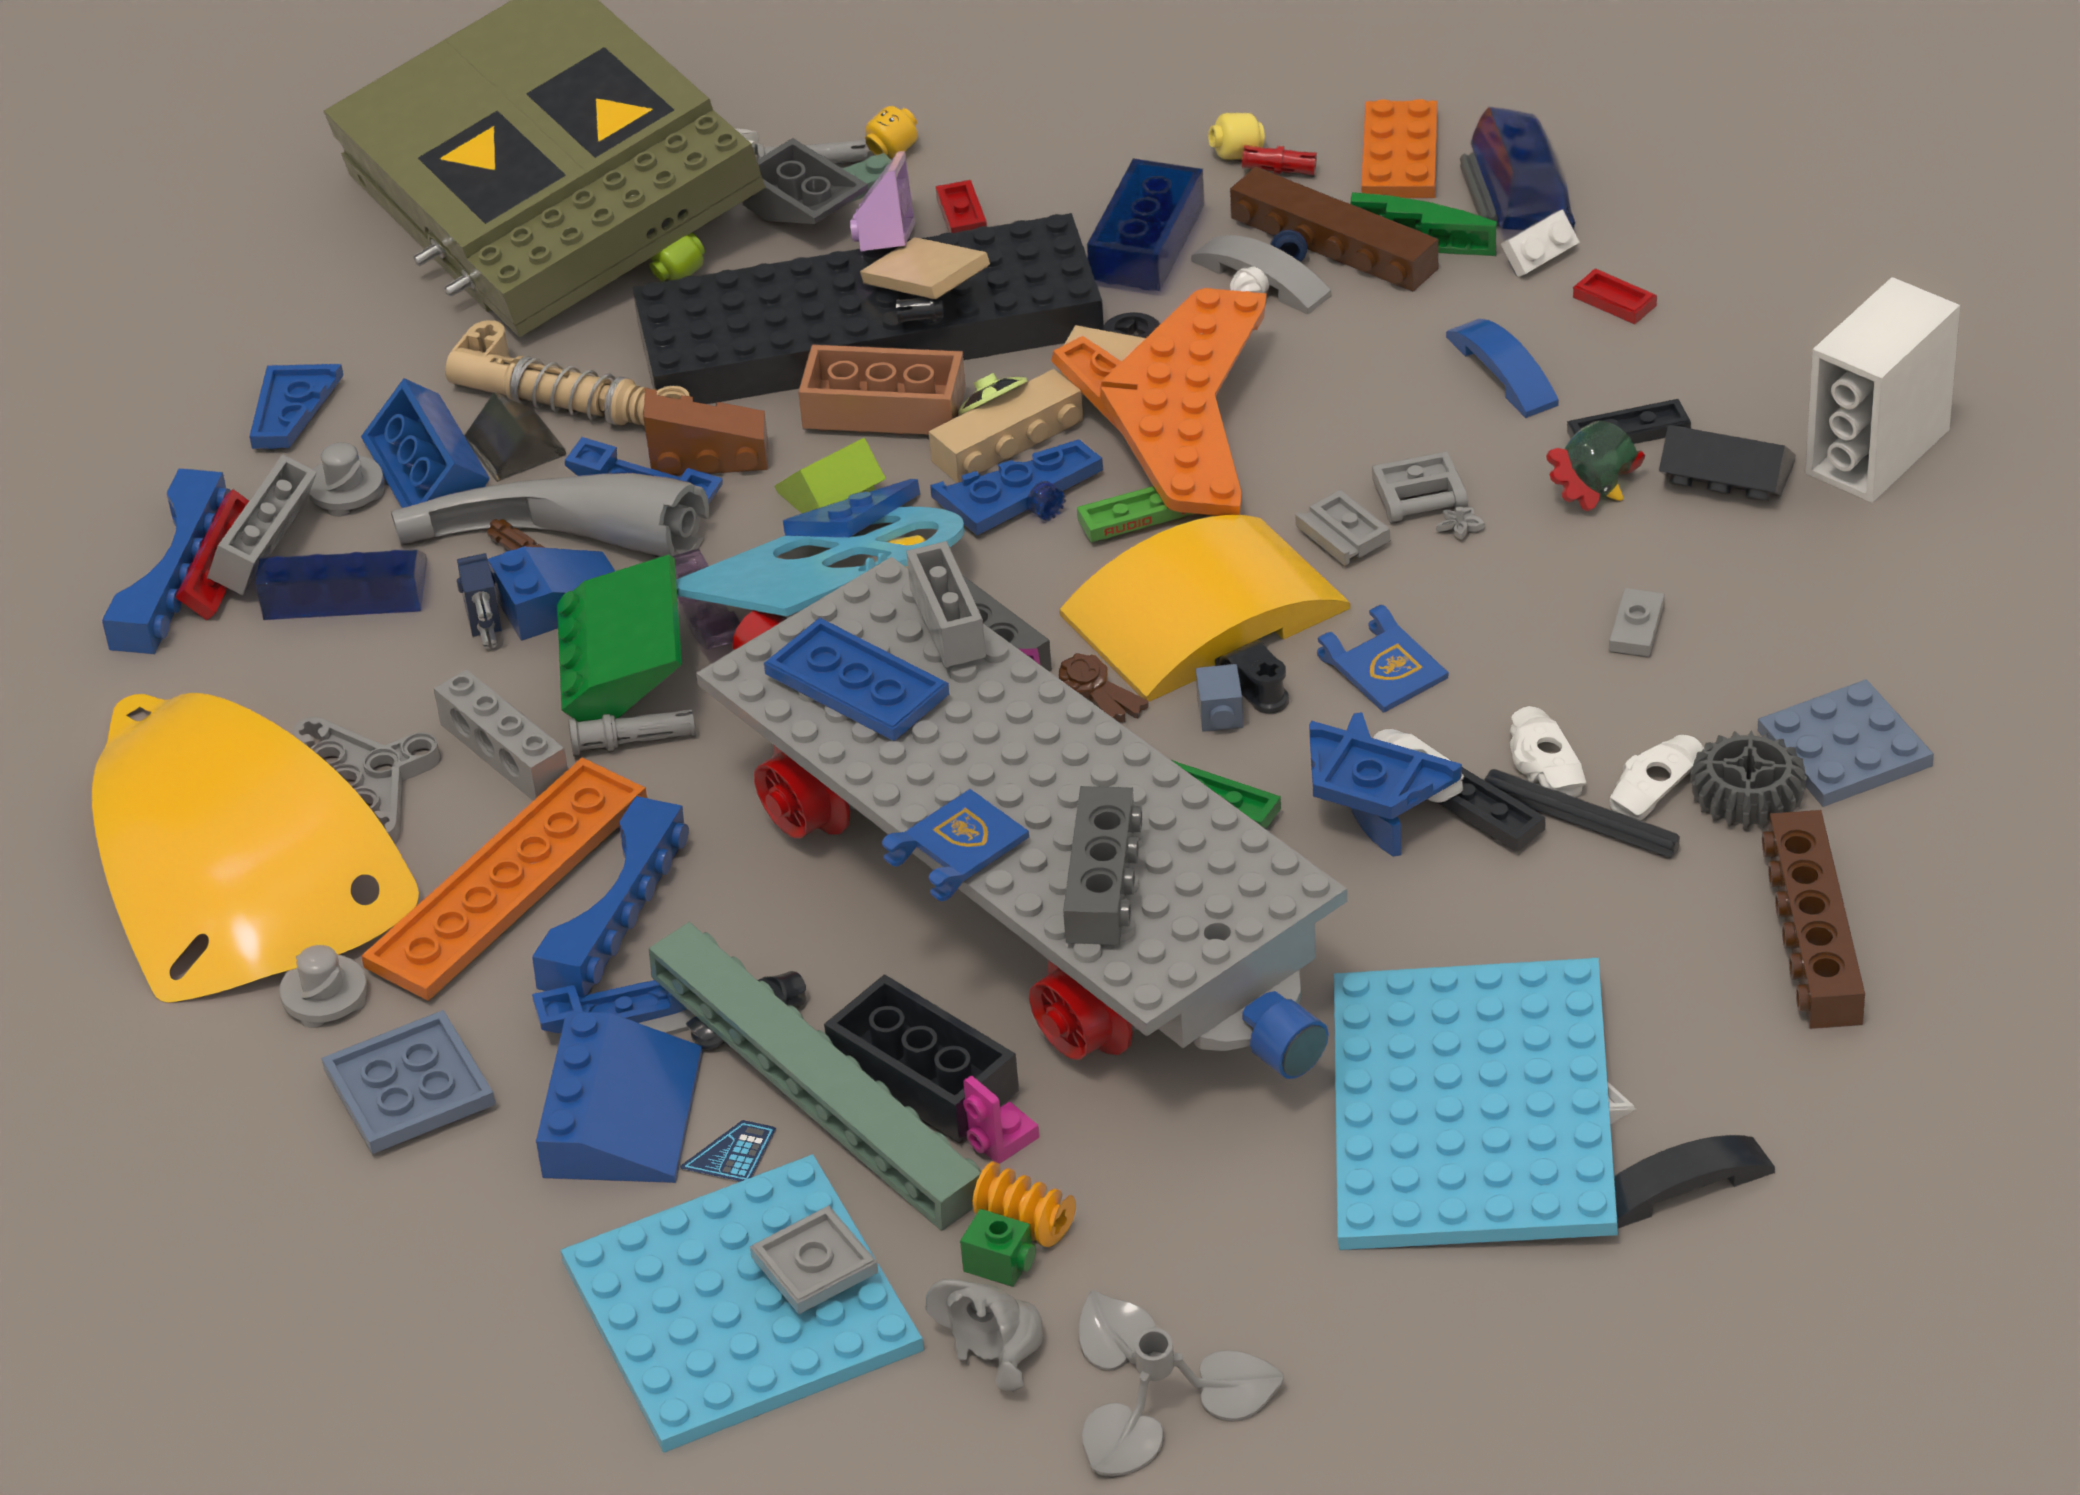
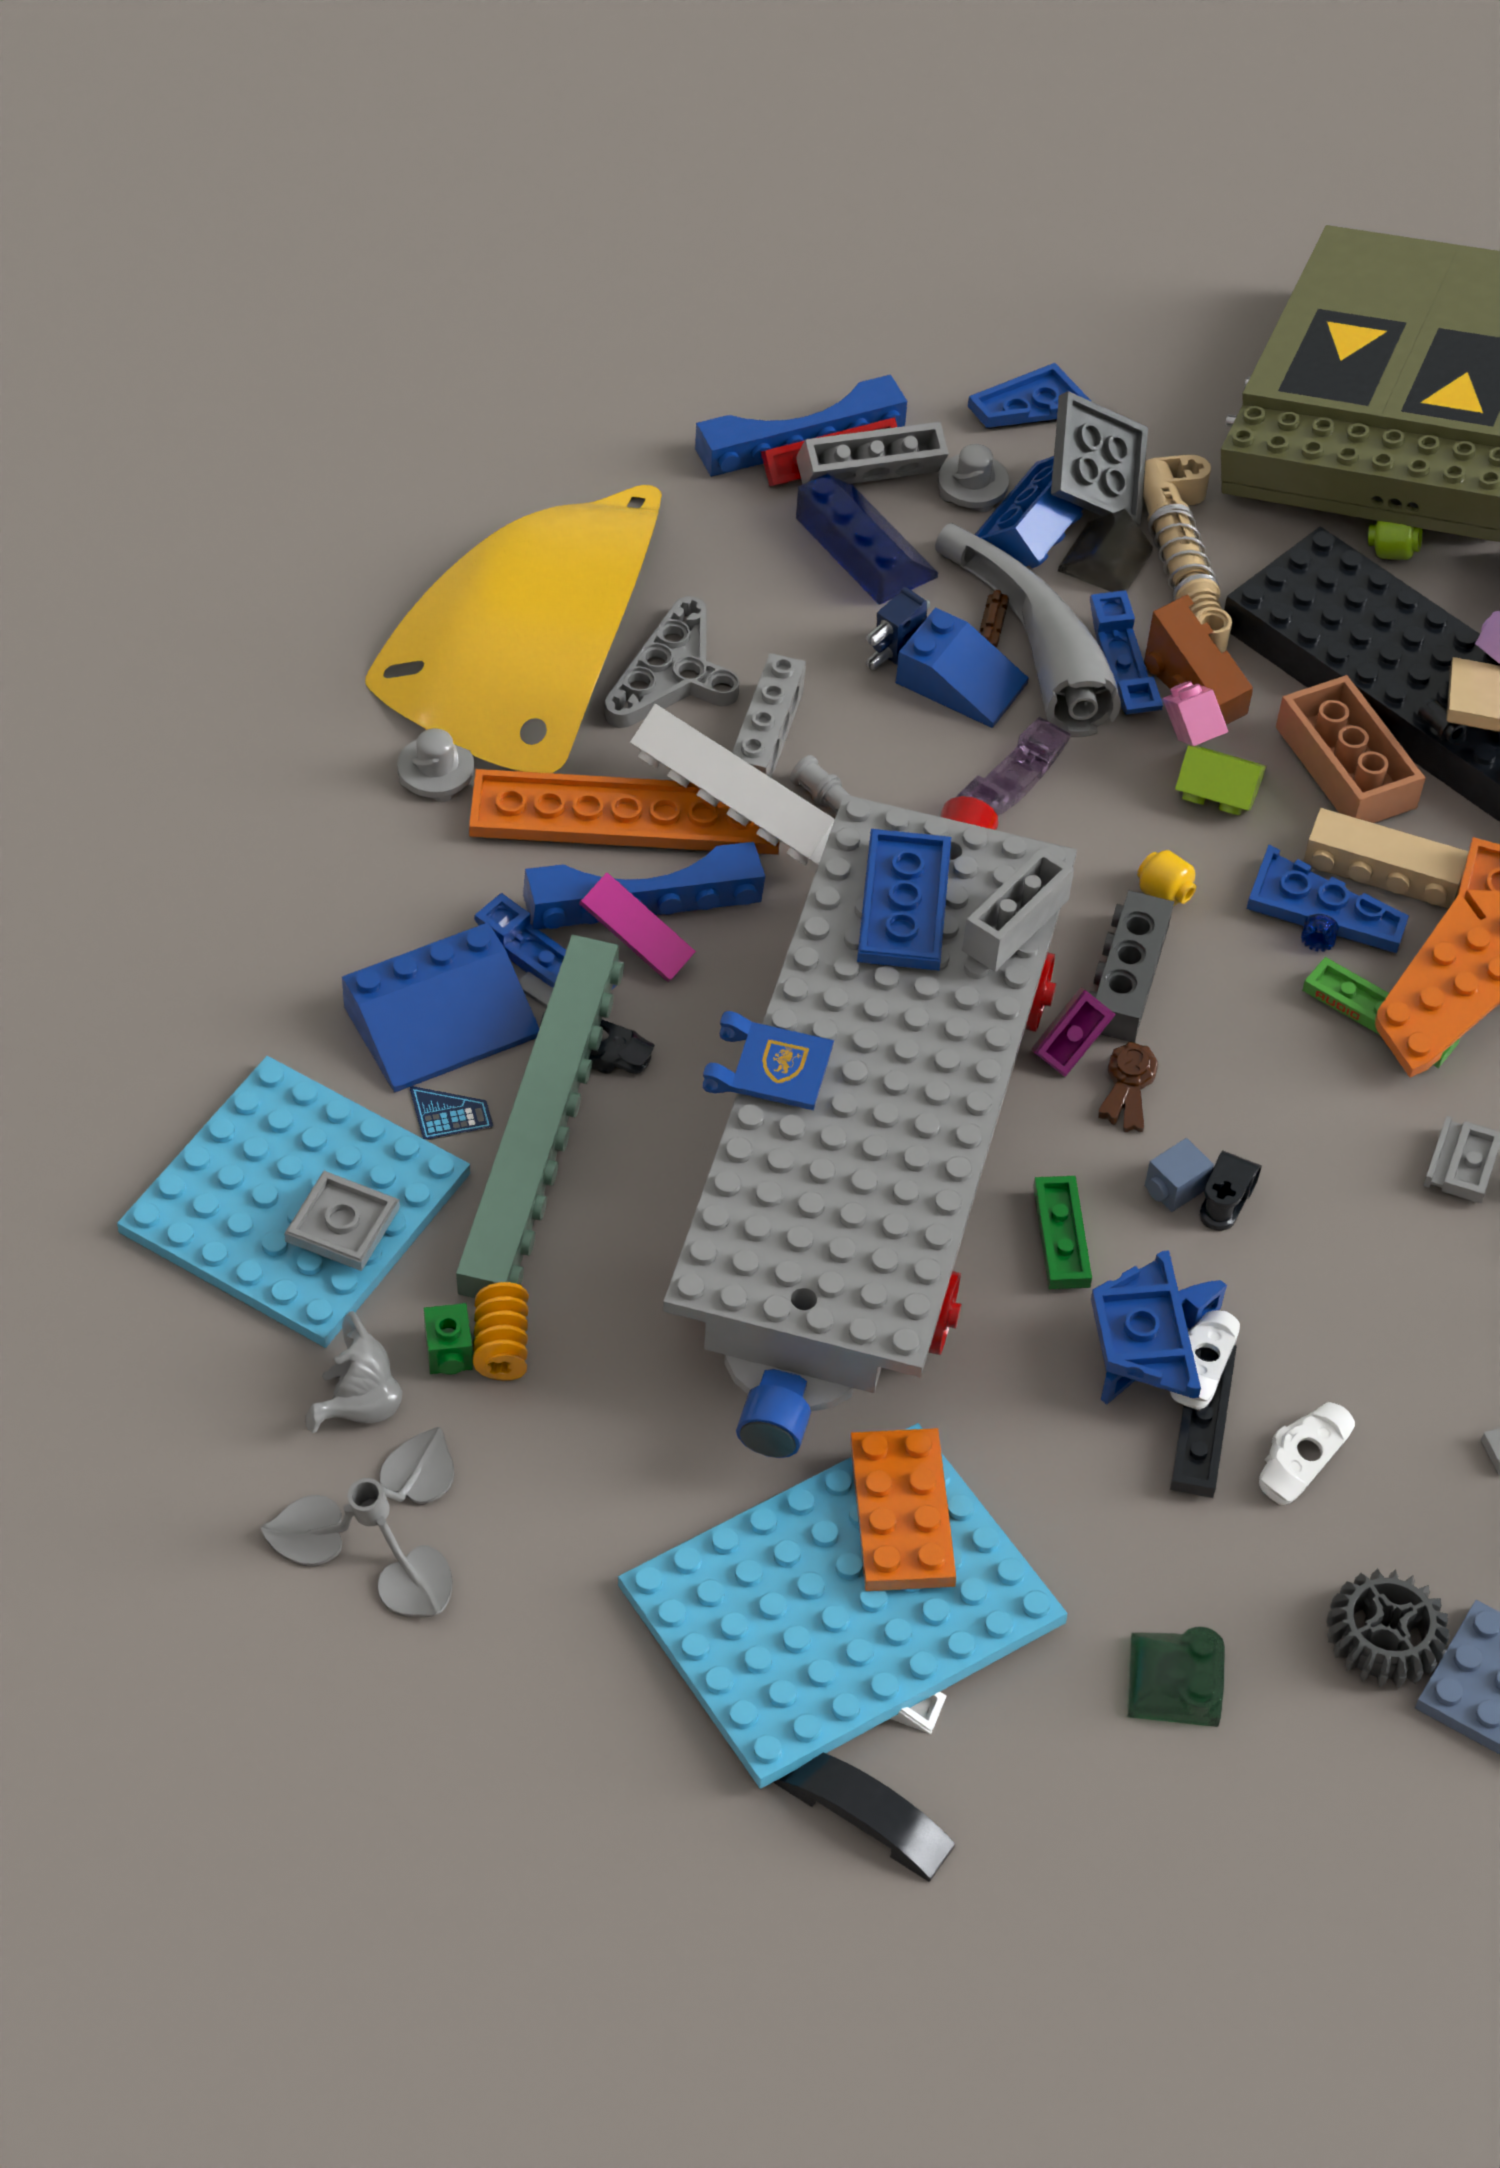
camera: 50 degrees right, 10 degrees up
(408, 1081) = (374, 869): sand blue plate -> none
(426, 376) = (1098, 458): none -> dark grey plate
(569, 773) = (735, 783): none -> white brick
(618, 638) = (906, 733): green slope -> none
(657, 914) = (637, 927): none -> dark pink tile
(766, 453) = (1194, 713): none -> bright pink brick
(787, 586) = (1037, 798): medium azure door -> none
(852, 514) = (1179, 808): blue wing -> none
(921, 1053) = (609, 1180): black brick -> none
(988, 389) = (1408, 822): yellowish green dish -> none
(993, 1128) = (576, 1276): dark pink bracket -> none
(1100, 865) = (827, 1159): dark grey brick -> none
(1195, 598) = (1295, 1103): yellow slope -> none
(1387, 666) = (1322, 1279): blue flag -> none
(1423, 1012) = (902, 1510): none -> orange plate
(1586, 814) = (1252, 1517): black axle -> none
(1638, 793) = (1309, 1549): white piece -> none
(1698, 926) = (1177, 1676): none -> clear green slope
(1814, 920) = (1169, 1835): reddish brown brick -> none

